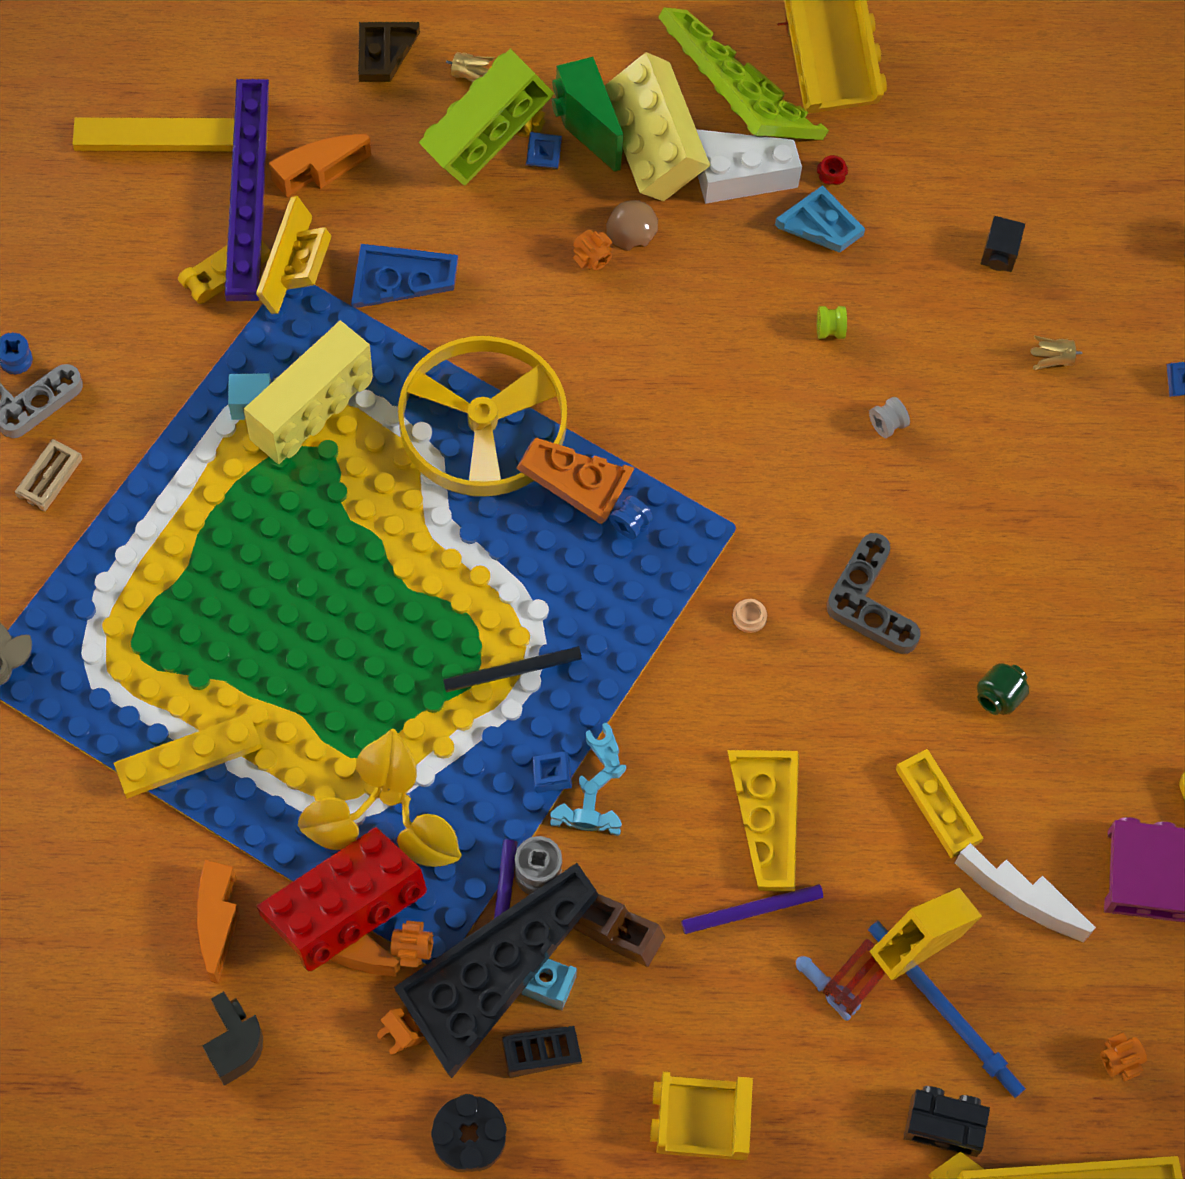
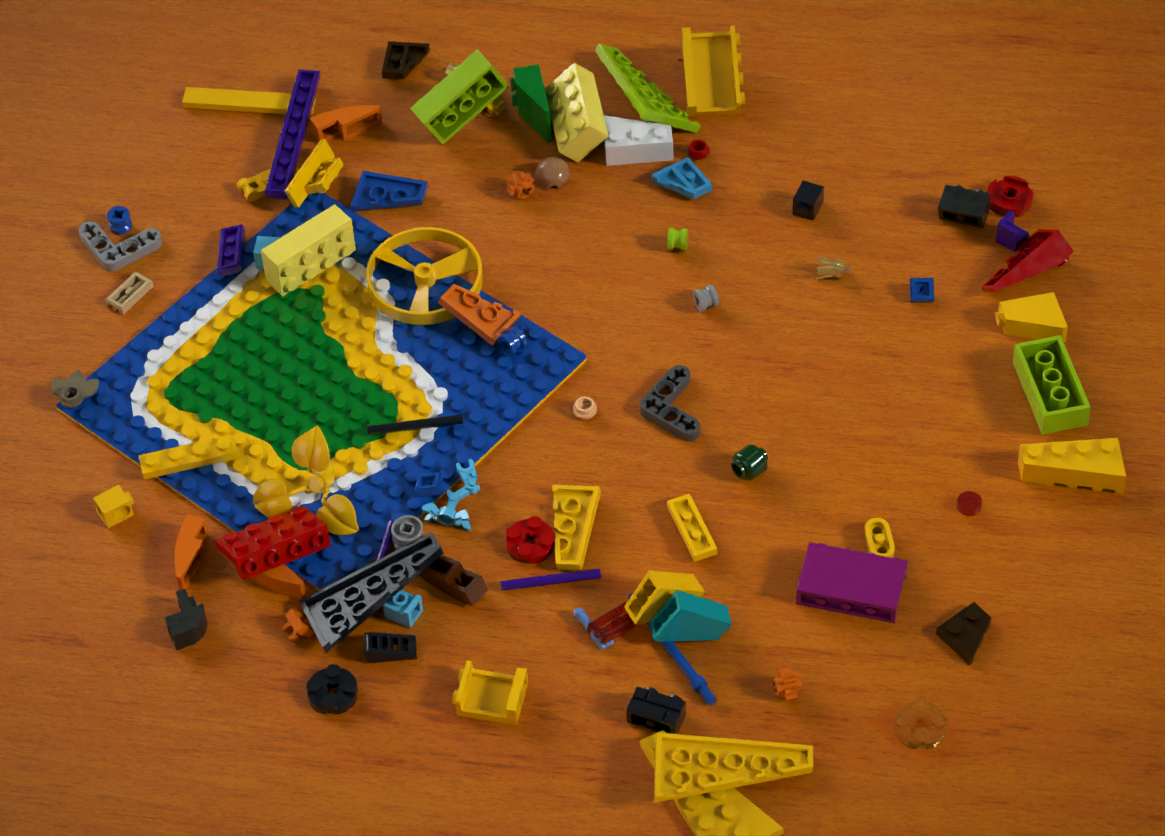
camera: 15 degrees right, 15 degrees down
(90, 850) = (114, 506): none -> yellow brick
(189, 393) = (230, 250): none -> dark purple tile
(411, 944) = (313, 572): orange gear -> none
(544, 150) = (499, 125): blue tile -> none
(713, 826) = (525, 529): none -> red plate
(969, 967) = (690, 619): none -> teal slope
(1036, 901) = (744, 588): white slope -> none

